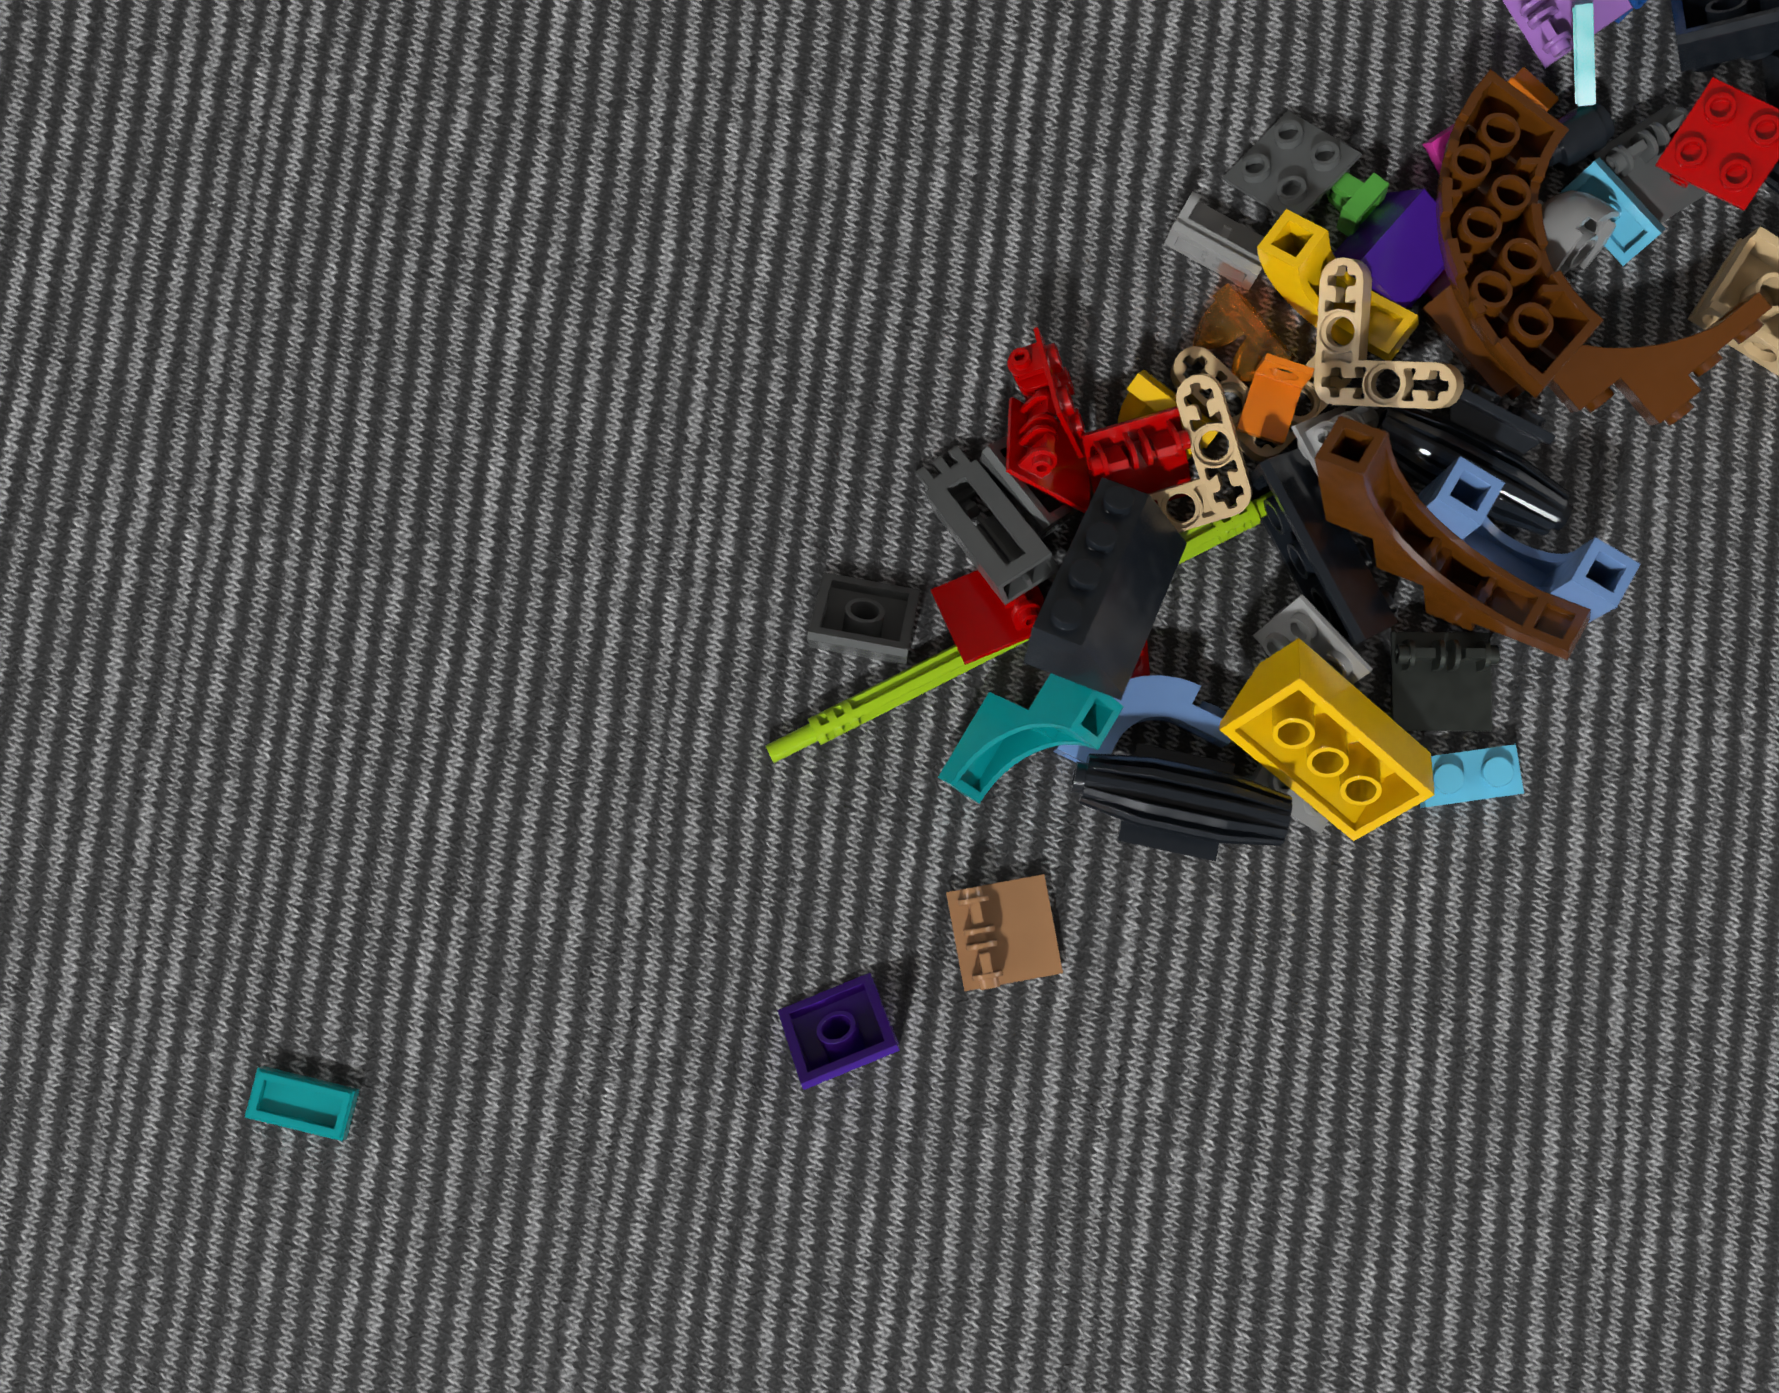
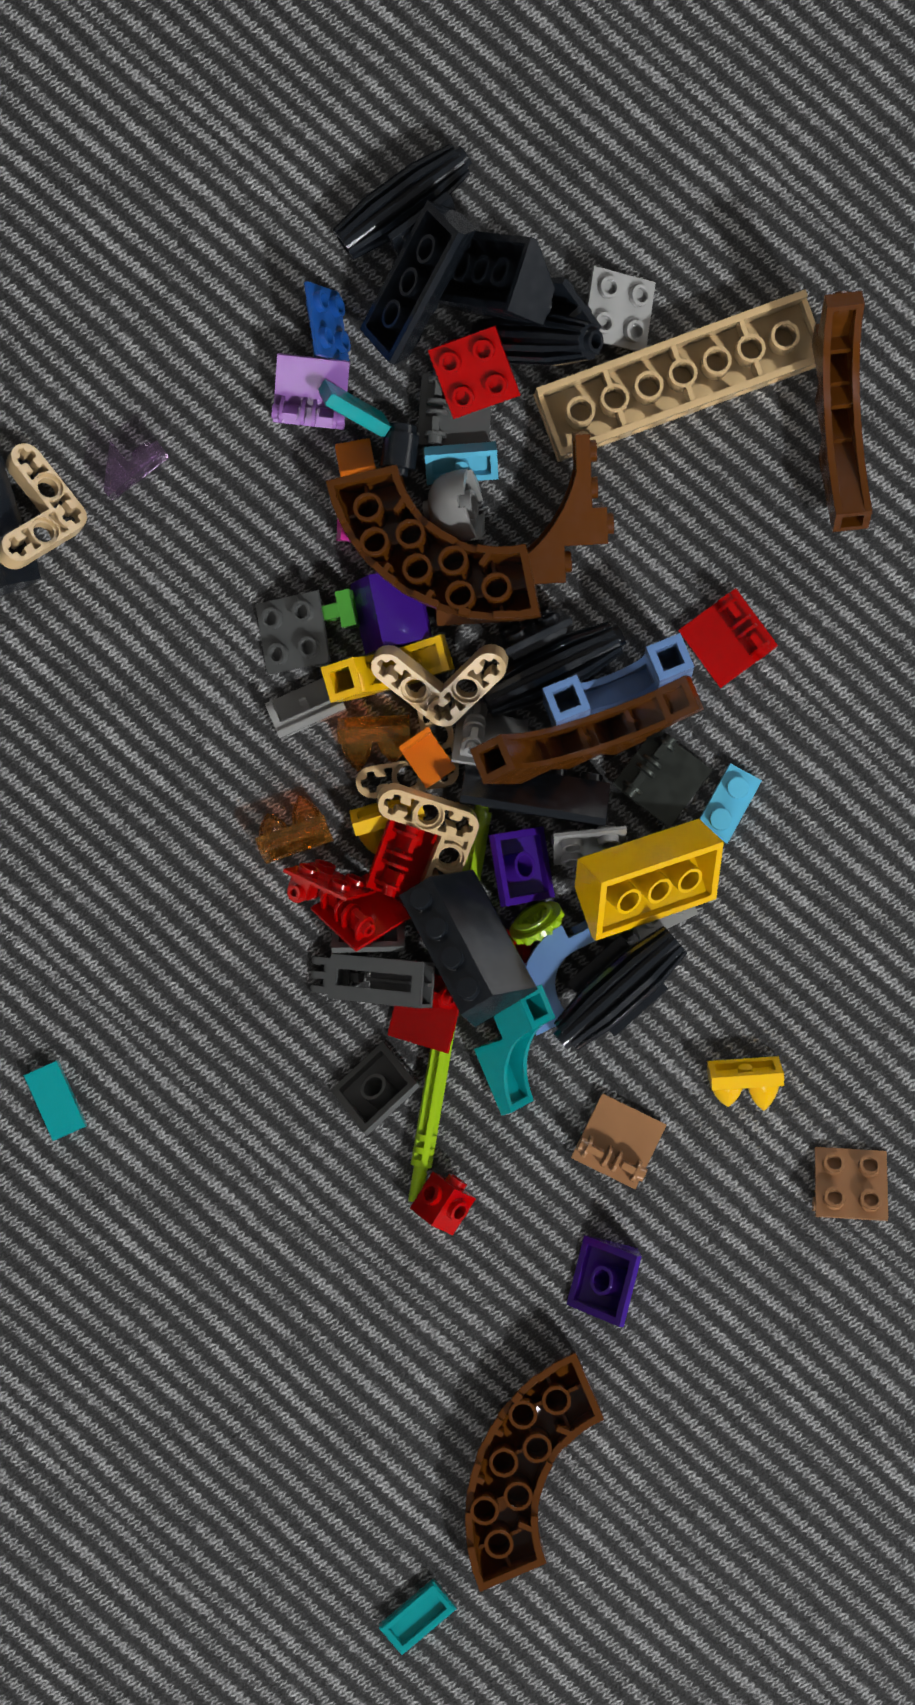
camera: 55 degrees left, 5 degrees up
(554, 1084) = (515, 1465): none -> reddish brown brick
(593, 284) = (55, 1100): none -> teal tile
(793, 784) = (443, 1202): none -> red brick
(1081, 335) = (308, 831): none -> clear orange tile
(1153, 1234) = (850, 1184): none -> medium nougat hinge
(1181, 657) = (536, 922): none -> lime gear
(1197, 1036) = (758, 1074): none -> yellow tile
(1227, 596) = (521, 866): none -> dark purple slope
(1649, 642) = (728, 638): none -> red hinge

